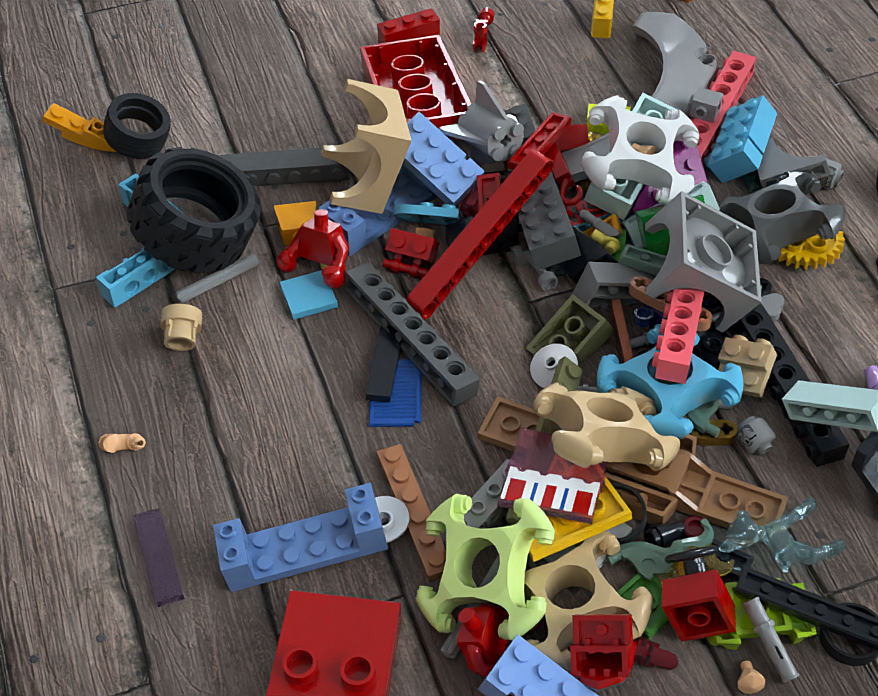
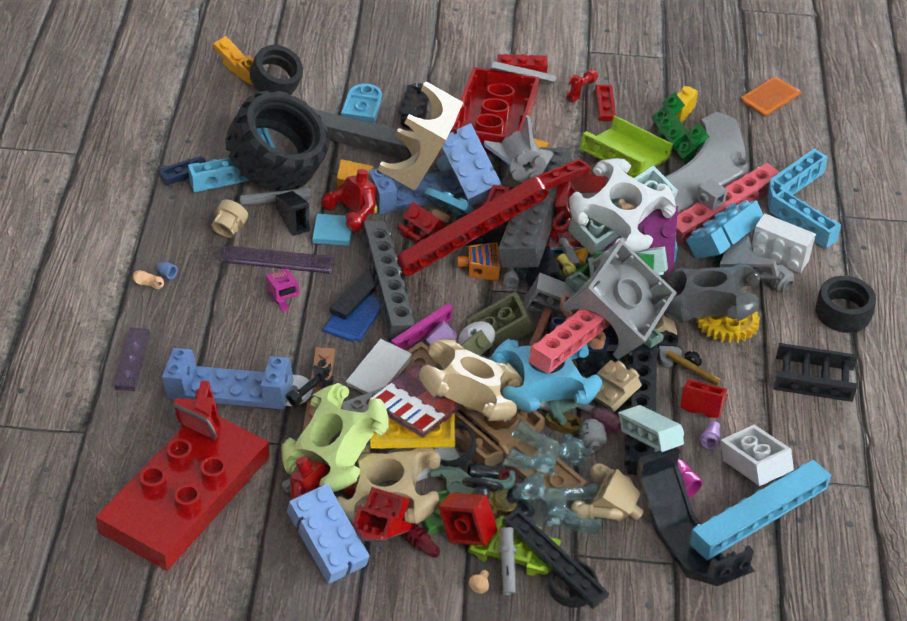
camera: 20 degrees right, 5 degrees down
(83, 287) = (178, 171): none -> dark blue hinge
(137, 420) = (167, 270): none -> medium blue hose
(253, 289) = (294, 212): none -> black slope
(255, 132) = (363, 104): none -> medium azure plate
(264, 356) = (277, 259): none -> clear purple tile
(294, 389) = (282, 286): none -> dark pink piece
(304, 605) = (199, 413): none -> red piece
(317, 124) = (406, 109): none -> black sword
(413, 493) = (295, 397): none -> black bar
(444, 33) = (544, 77): none -> light grey tile
(469, 450) = (379, 367): none -> white tile
(487, 381) = (423, 328): none -> dark pink tile
(504, 271) = (481, 261): none -> orange torso
(514, 380) = (442, 331): none -> lavender panel
(519, 41) = (605, 102): none -> red tile
(576, 81) = (630, 143): none -> lime panel
(622, 52) = (670, 127): none -> green bracket
(748, 464) = (571, 449): none -> clear light blue animal
(759, 408) = (608, 419): none -> clear pink brick
(790, 92) = (797, 212): none -> medium azure brick
(799, 307) = (697, 360): none -> black plate
(807, 311) = (692, 367): none -> pearl gold bar
(809, 131) = (782, 242): none -> white brick
(837, 502) = (613, 500): none -> tan torso
(845, 343) = (703, 398): none -> red brick

